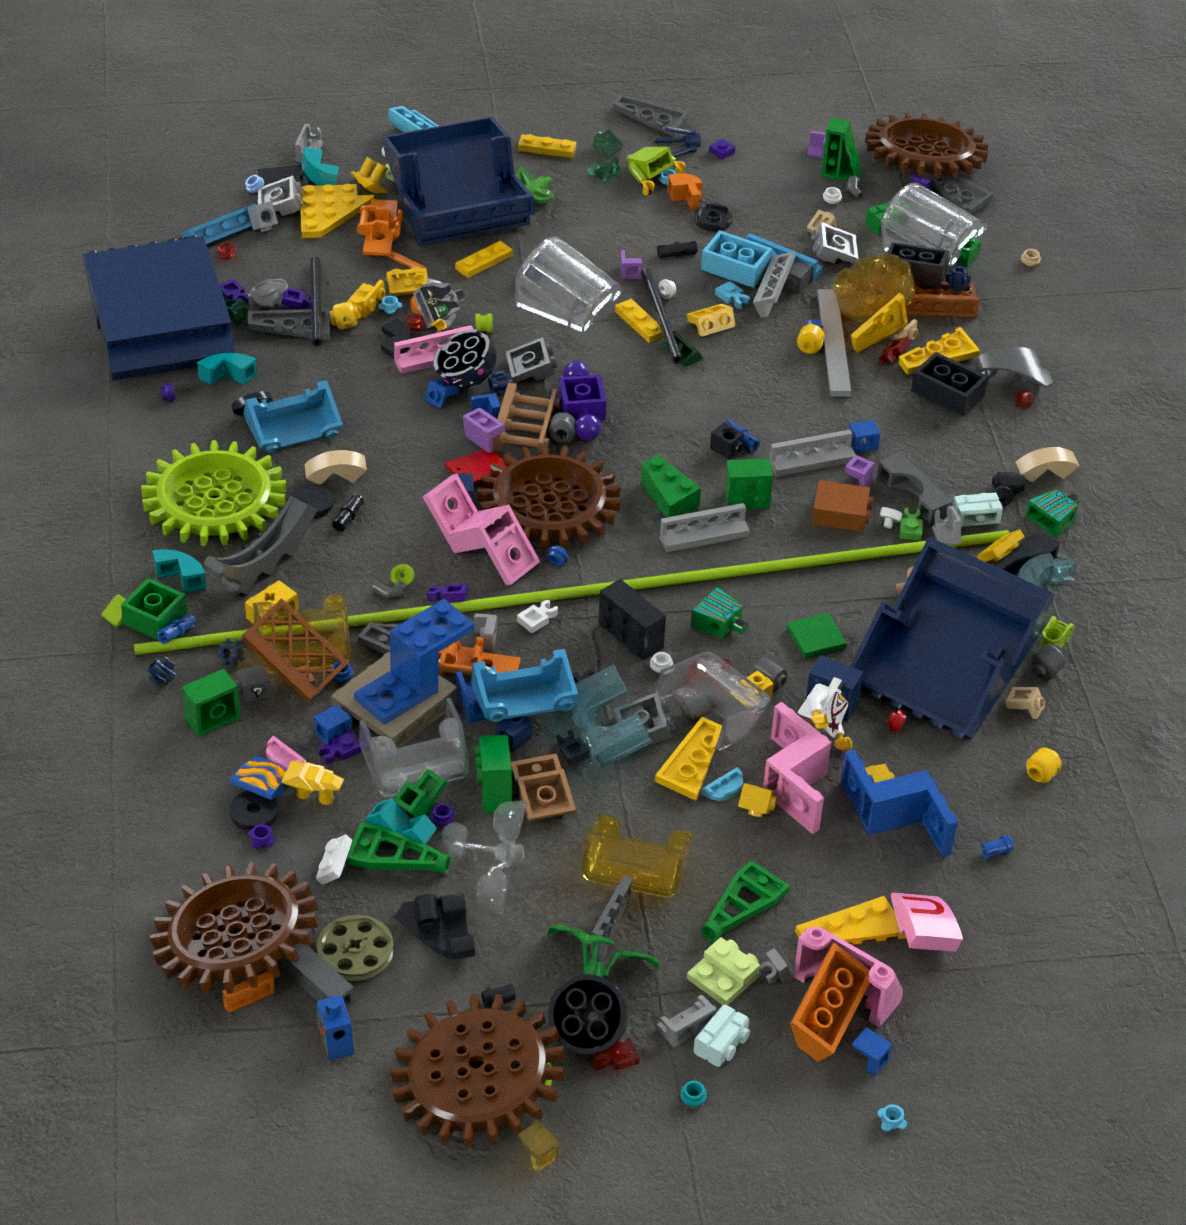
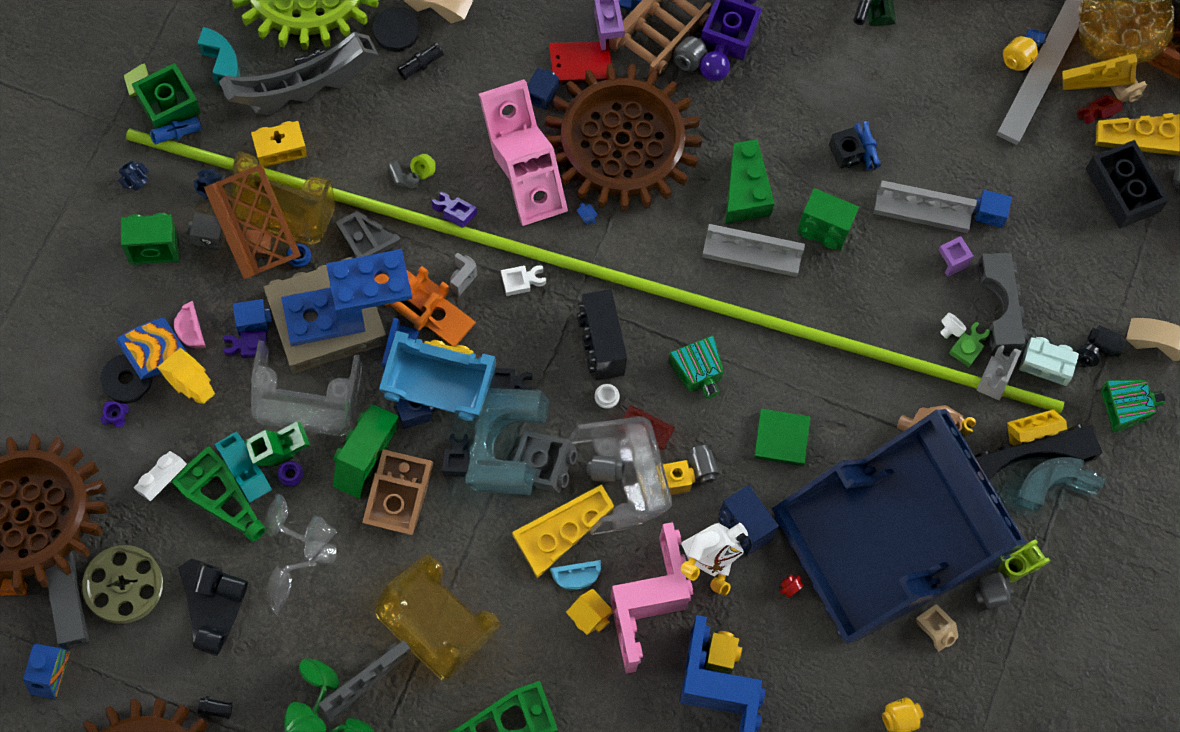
camera: 25 degrees right, 25 degrees up
(842, 506) = (911, 288): dark orange brick -> none

